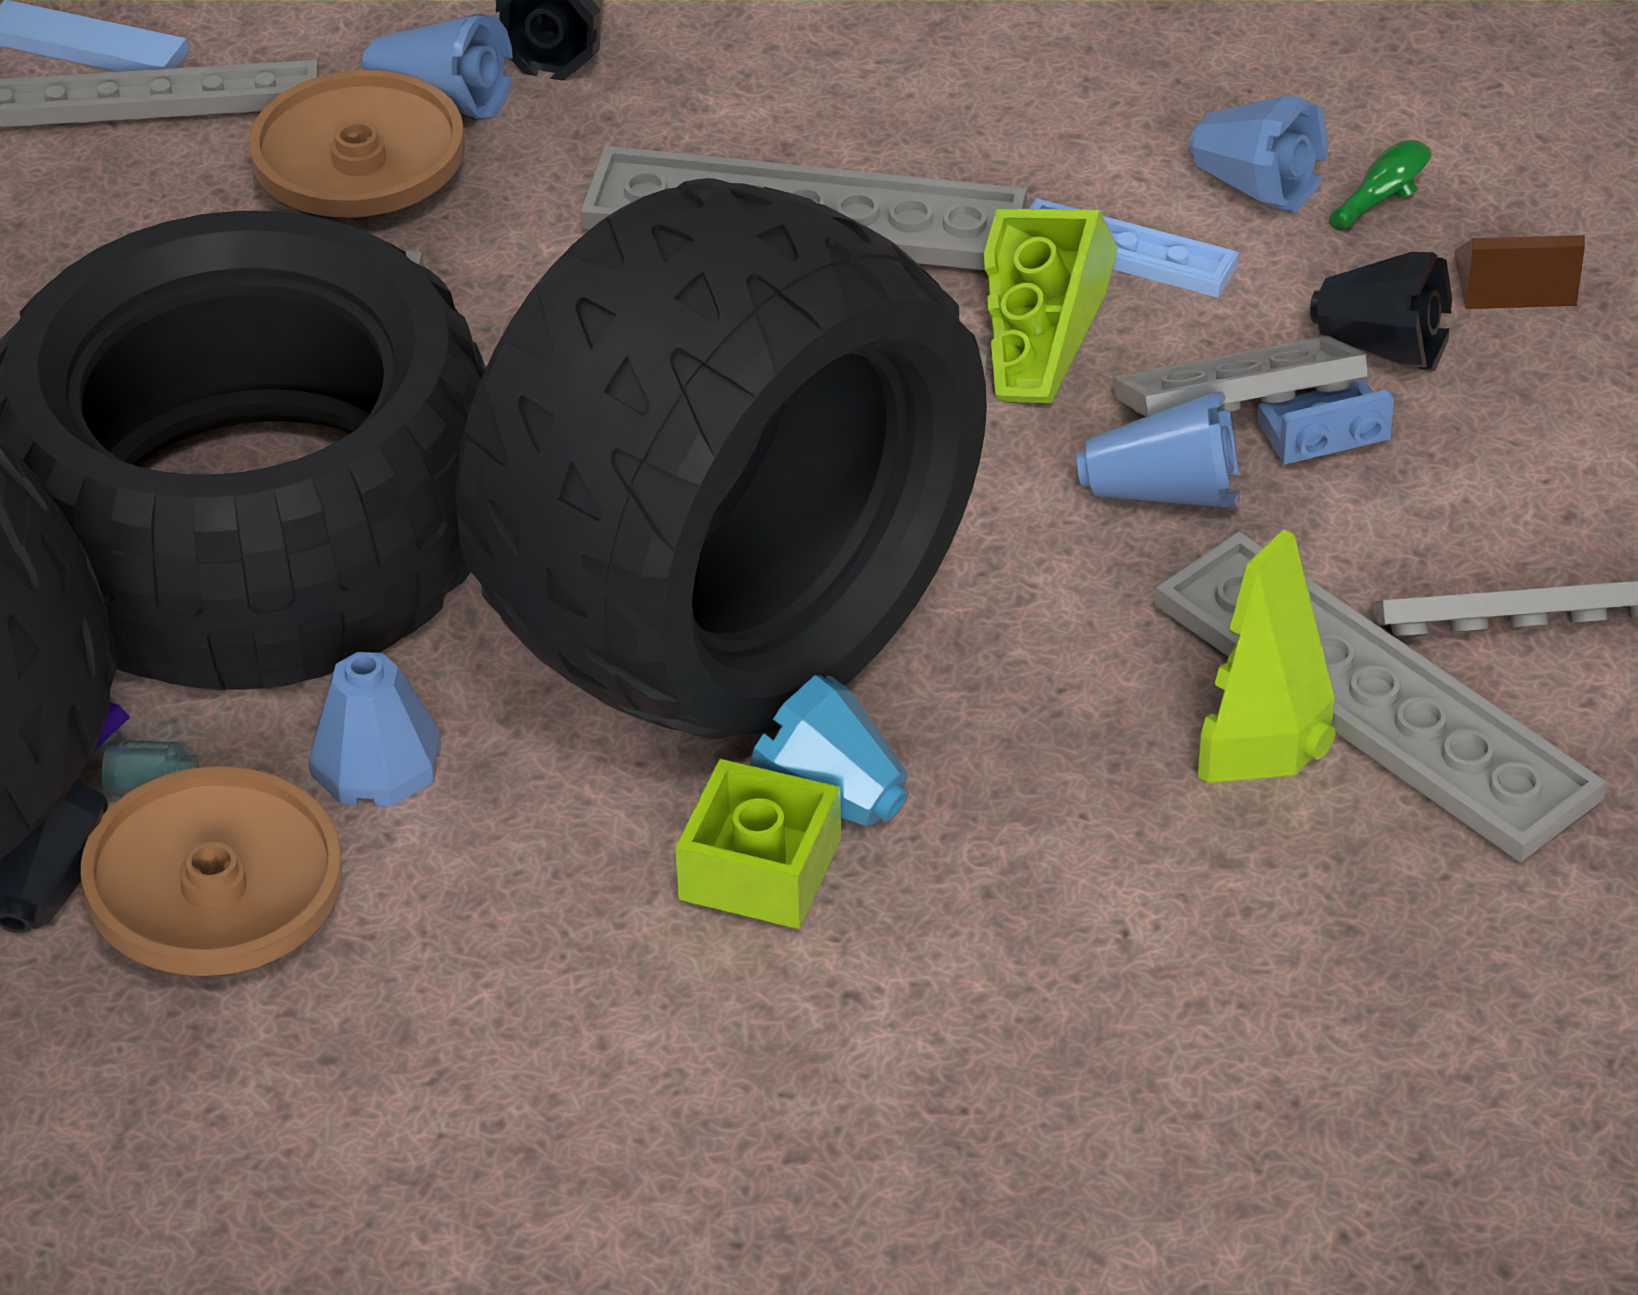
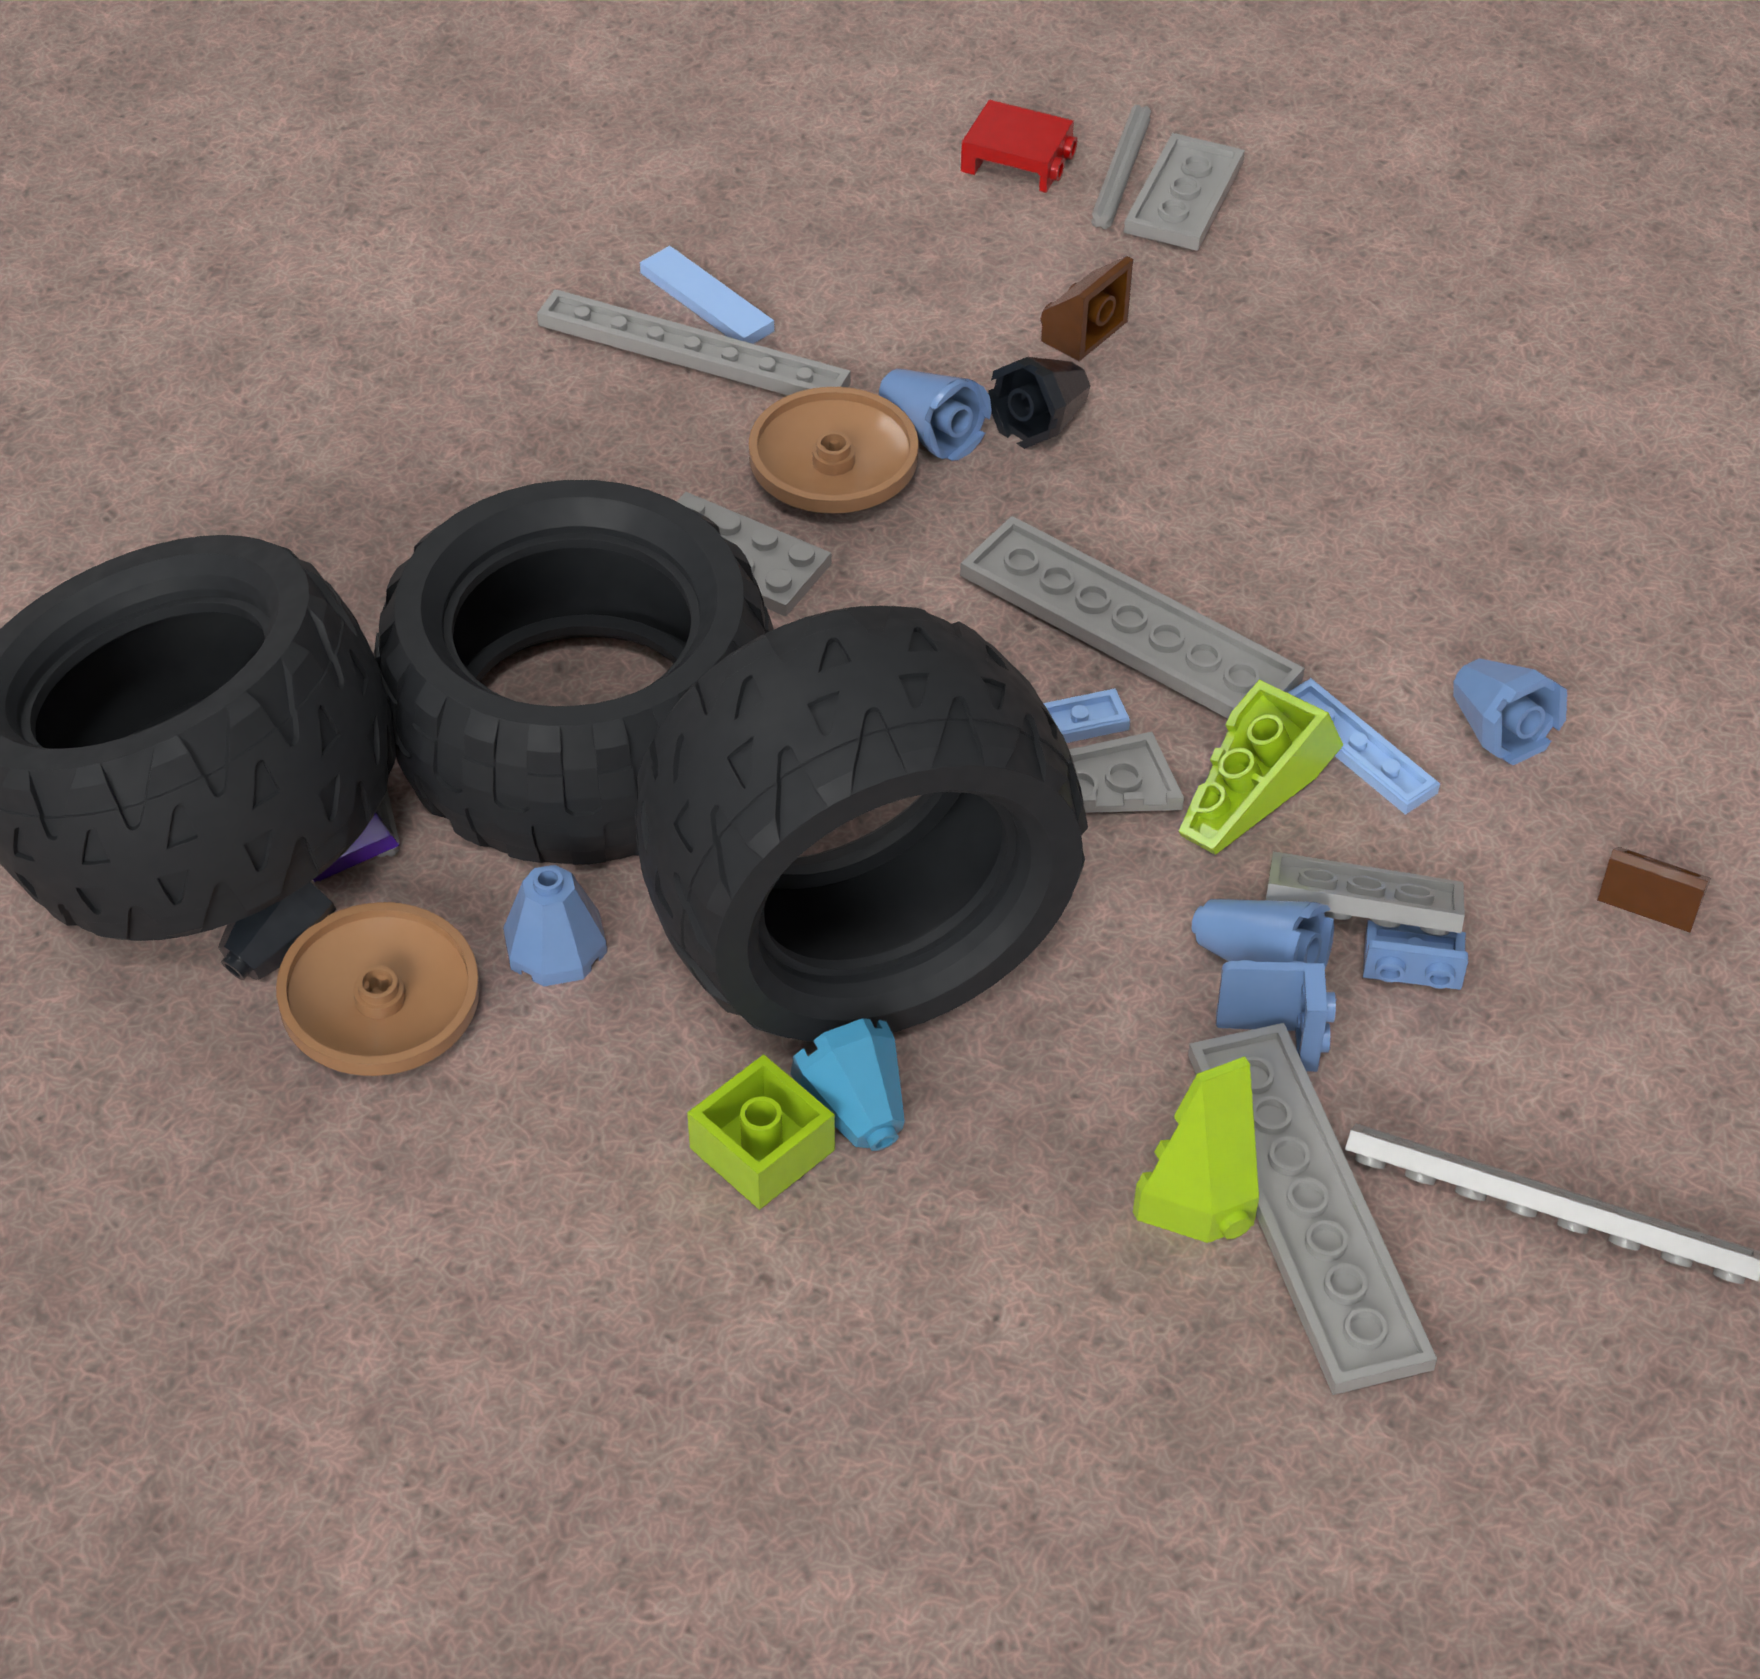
camera: 25 degrees right, 5 degrees up
(141, 761) = (390, 884): clear light blue brick -> none
(1227, 496) = (1277, 993): none -> medium blue bracket
(1388, 174) = (1599, 762): green piece -> none
(1389, 309) = (1522, 883): black cone -> none

